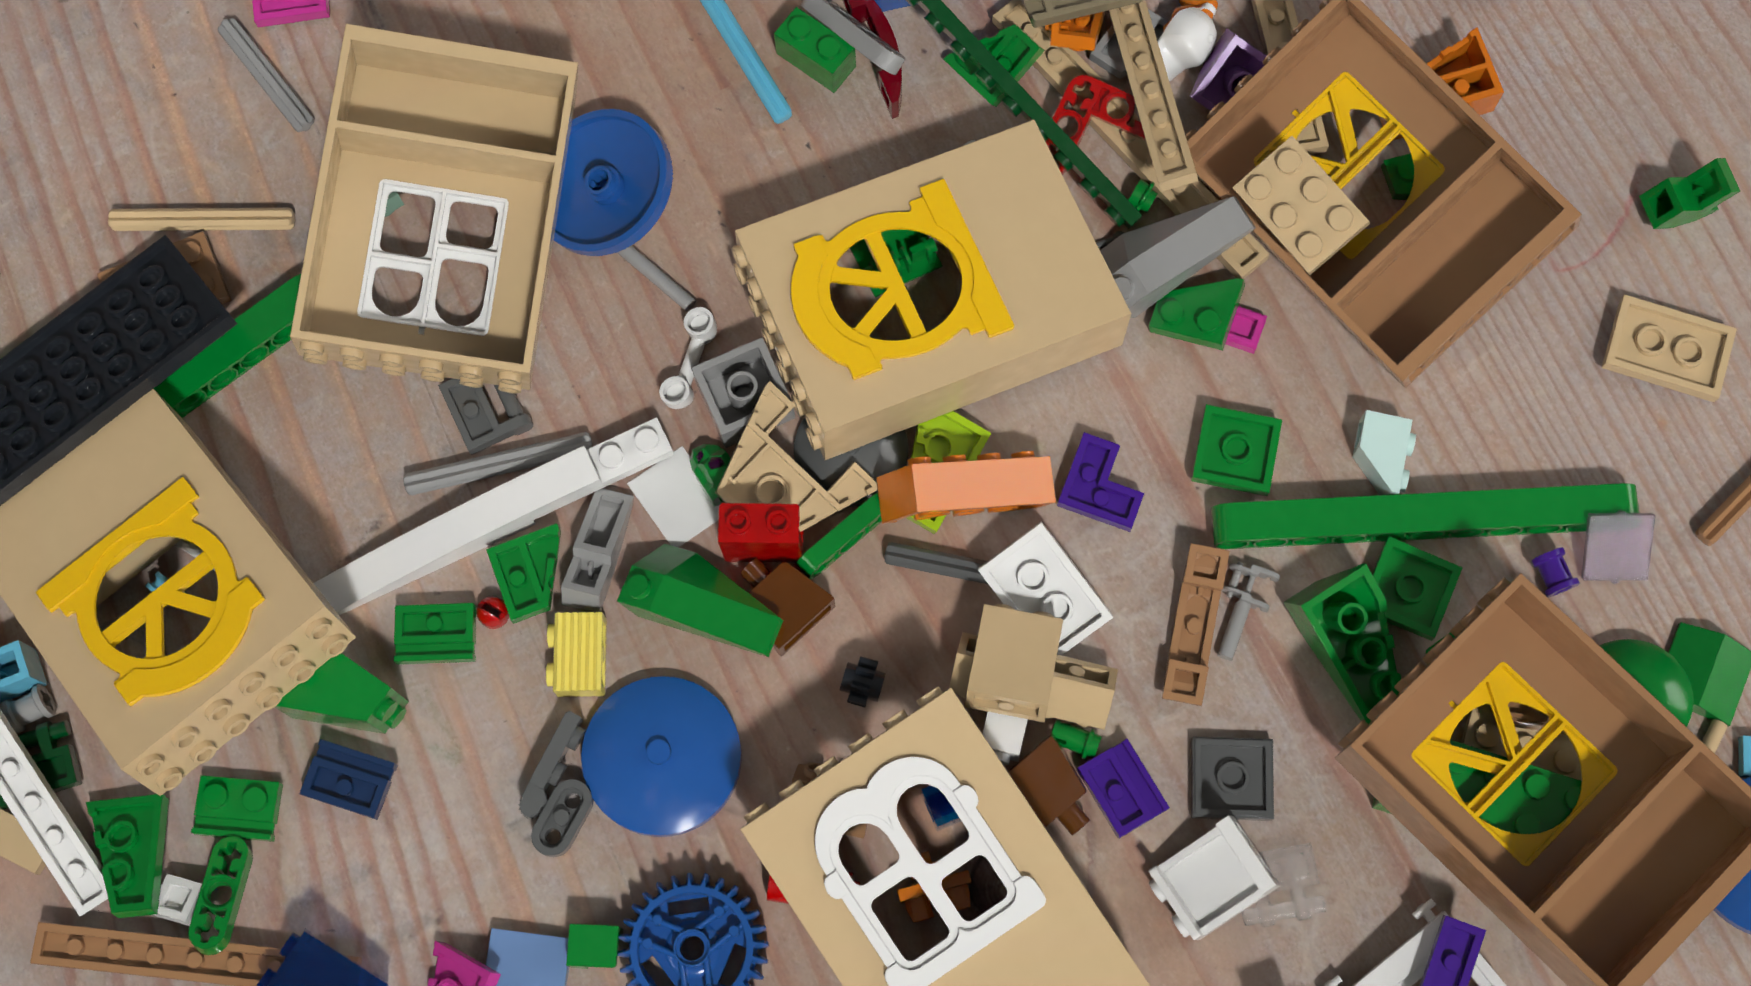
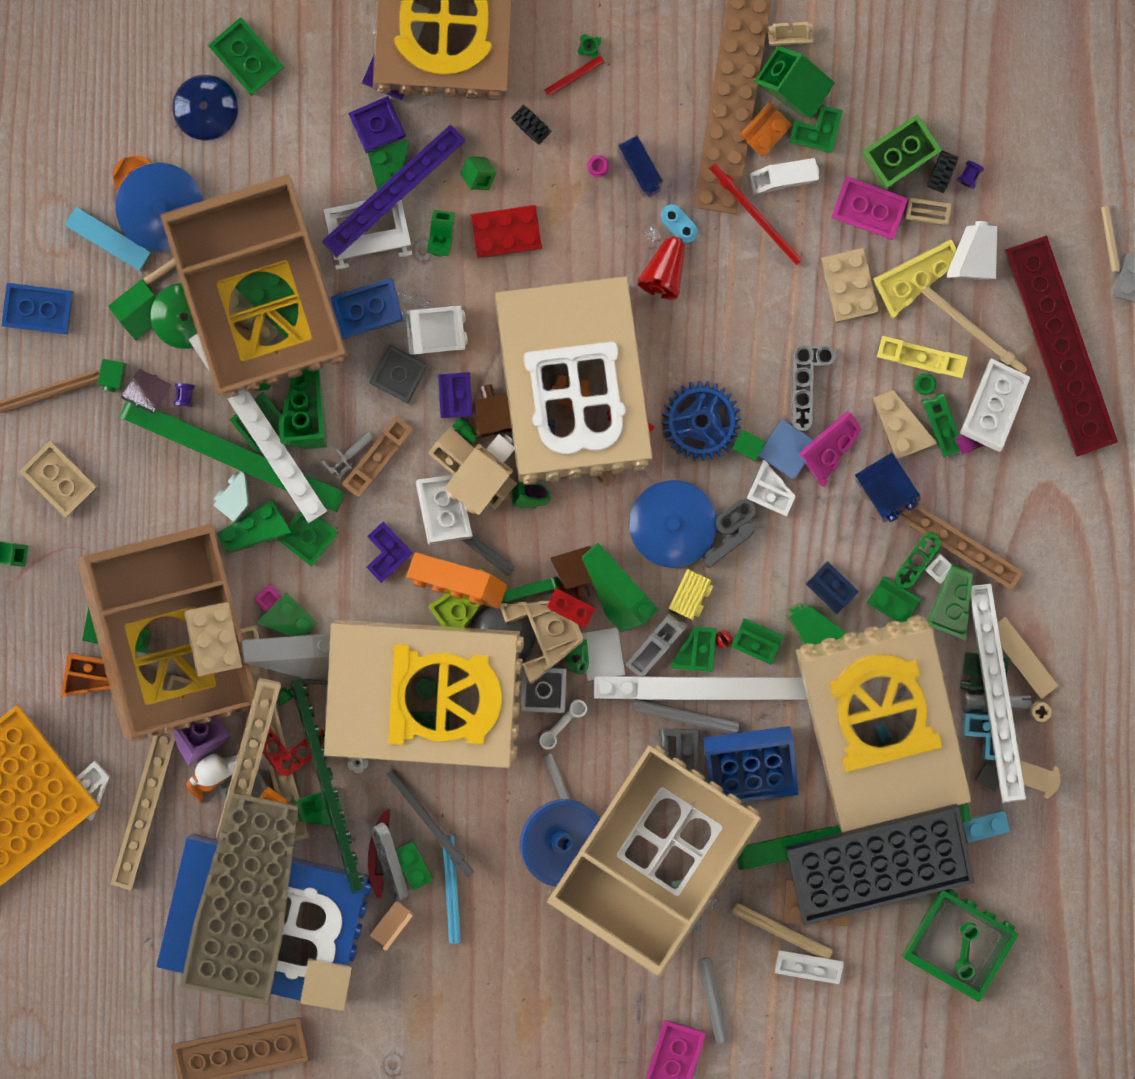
camera: 155 degrees left, 15 degrees up
(135, 185) = (809, 967): none -> white plate
(357, 440) = (753, 764): none -> blue slope
(522, 889) = (770, 491): none -> white wing
(755, 89) = (456, 856): none -> dark grey bar
(862, 681) = (556, 510): black gear -> none
(913, 682) = (530, 495): none -> green rock
(931, 310) = (425, 688): none -> green tile
(1324, 422) = (256, 527): none -> green wing
(1344, 857) = (367, 308): none -> blue plate
(1355, 543) = (272, 448): none -> white plate
(1685, 546) = (111, 375): none -> green brick

